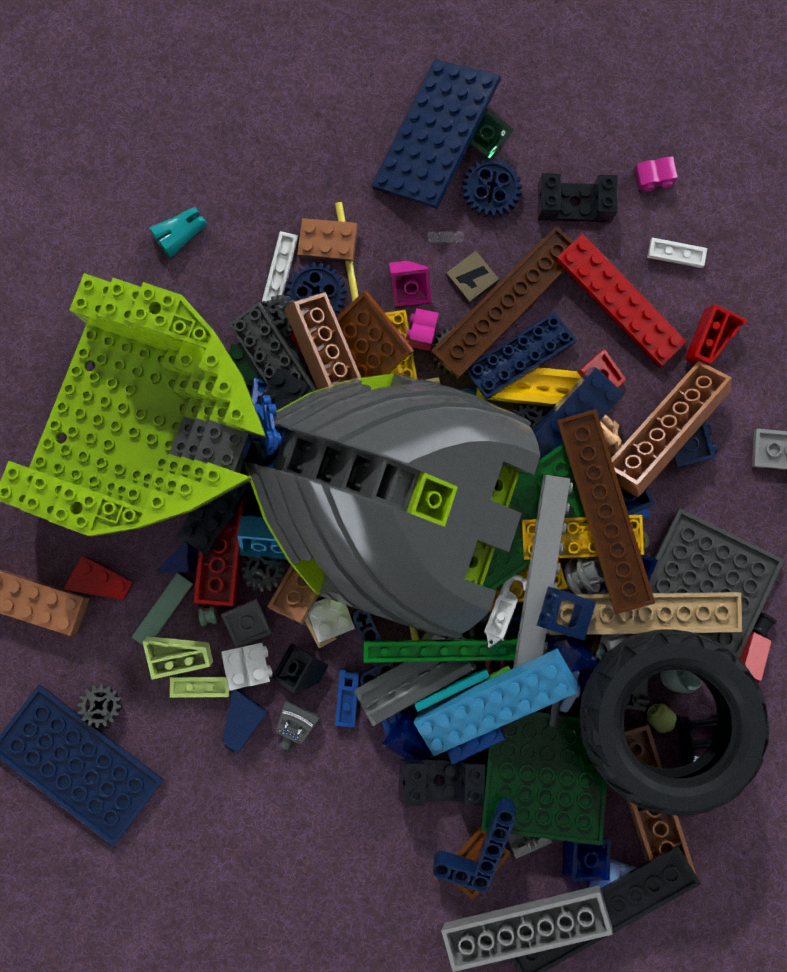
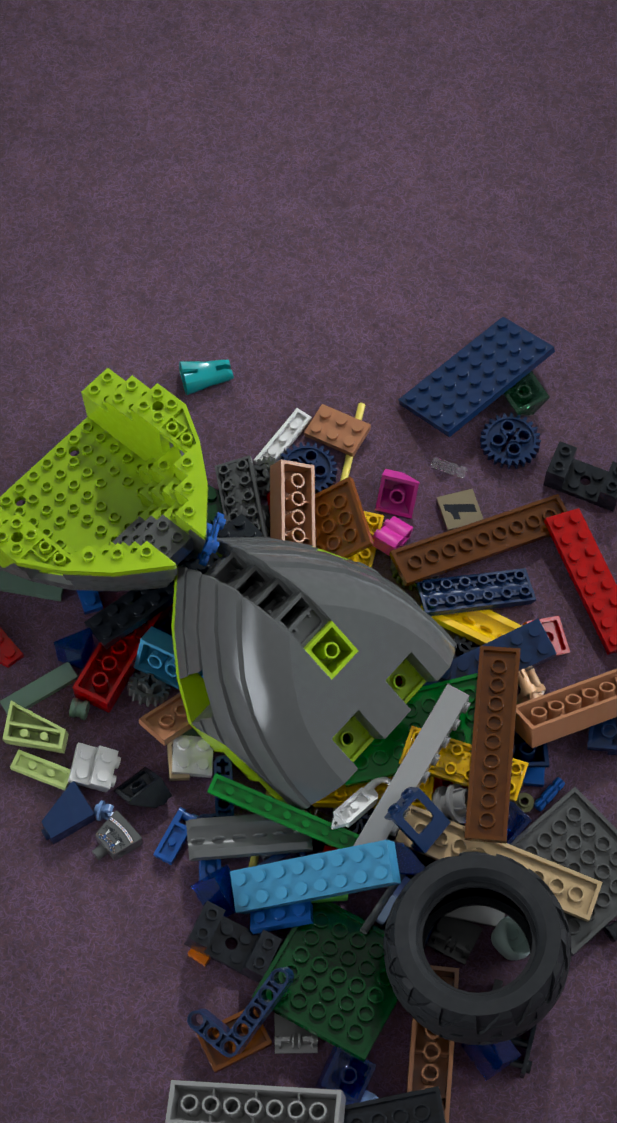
camera: 25 degrees right, 20 degrees down
(246, 622) = (112, 729): dark grey plate -> none
(271, 703) = (103, 810): none -> medium blue plate
(451, 689) = (256, 859): teal tile -> none
(658, 522) = (549, 794): none -> blue axle
(661, 718) = (476, 975): yellowish green head -> none
(755, 655) = (588, 955): slope -> none

